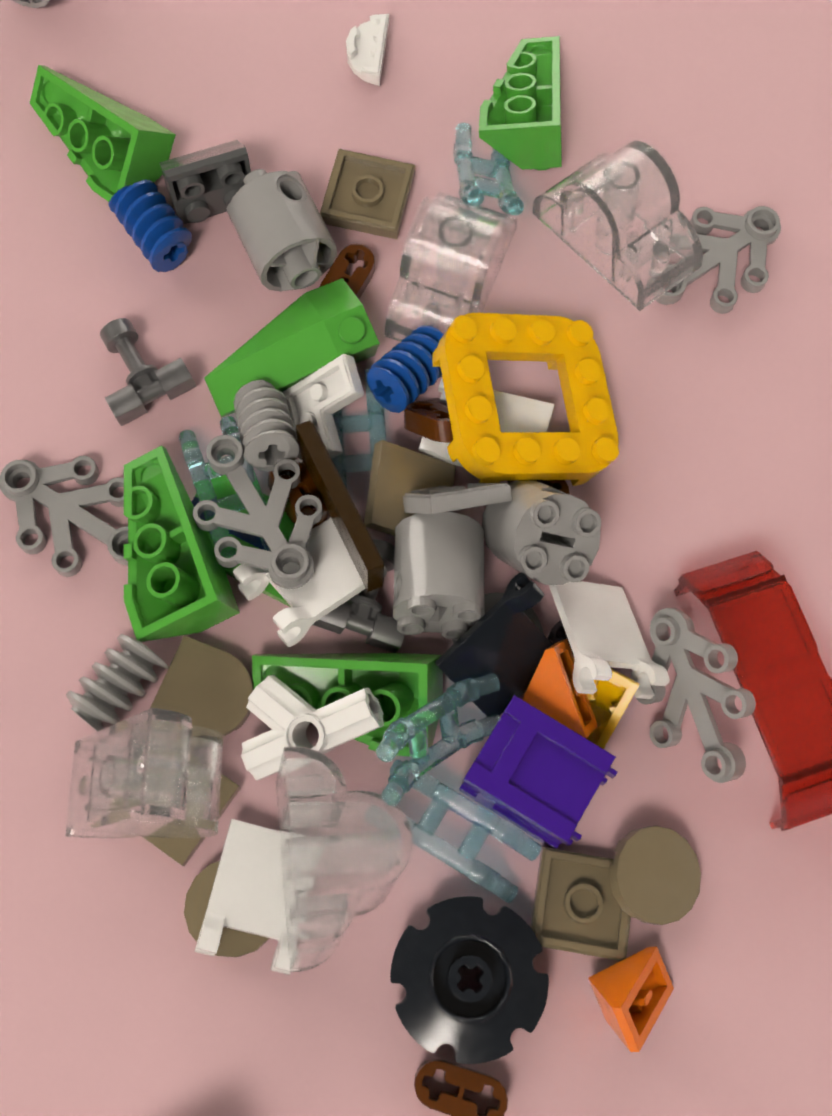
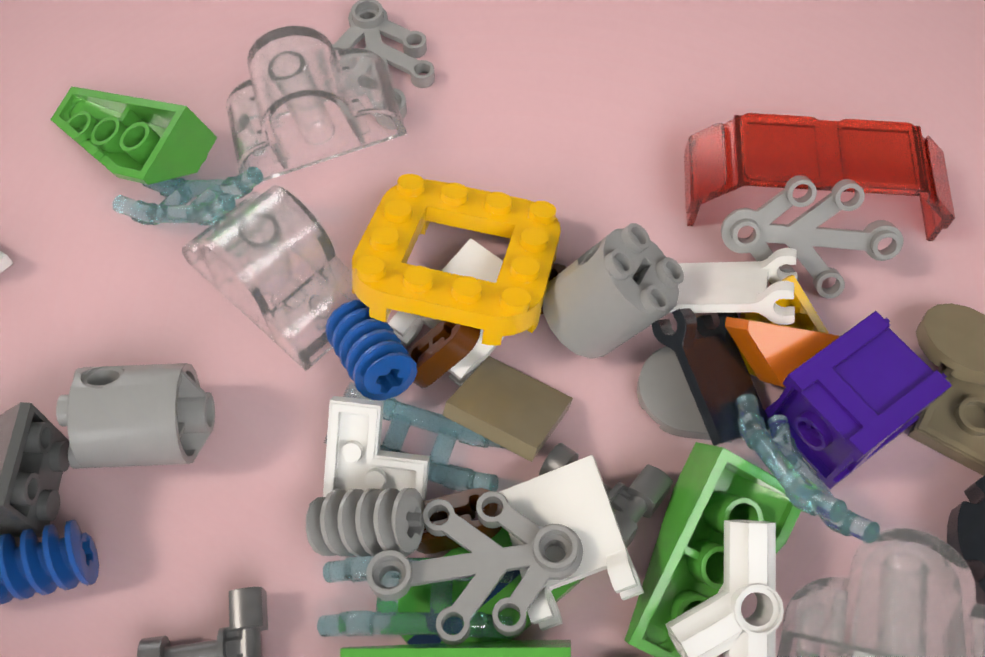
camera: 65 degrees left, 10 degrees down
(297, 343) = (278, 452): bright green wedge -> none
(340, 506) = (507, 470): dark brown tile -> none
(361, 275) = (233, 374): reddish brown beam -> none
(367, 193) = (133, 320): dark tan tile -> none
(438, 574) = (614, 406): light grey cylinder -> none
(447, 499) = (551, 357): light grey tile -> none
(483, 824) = (882, 473): clear light blue piece -> none

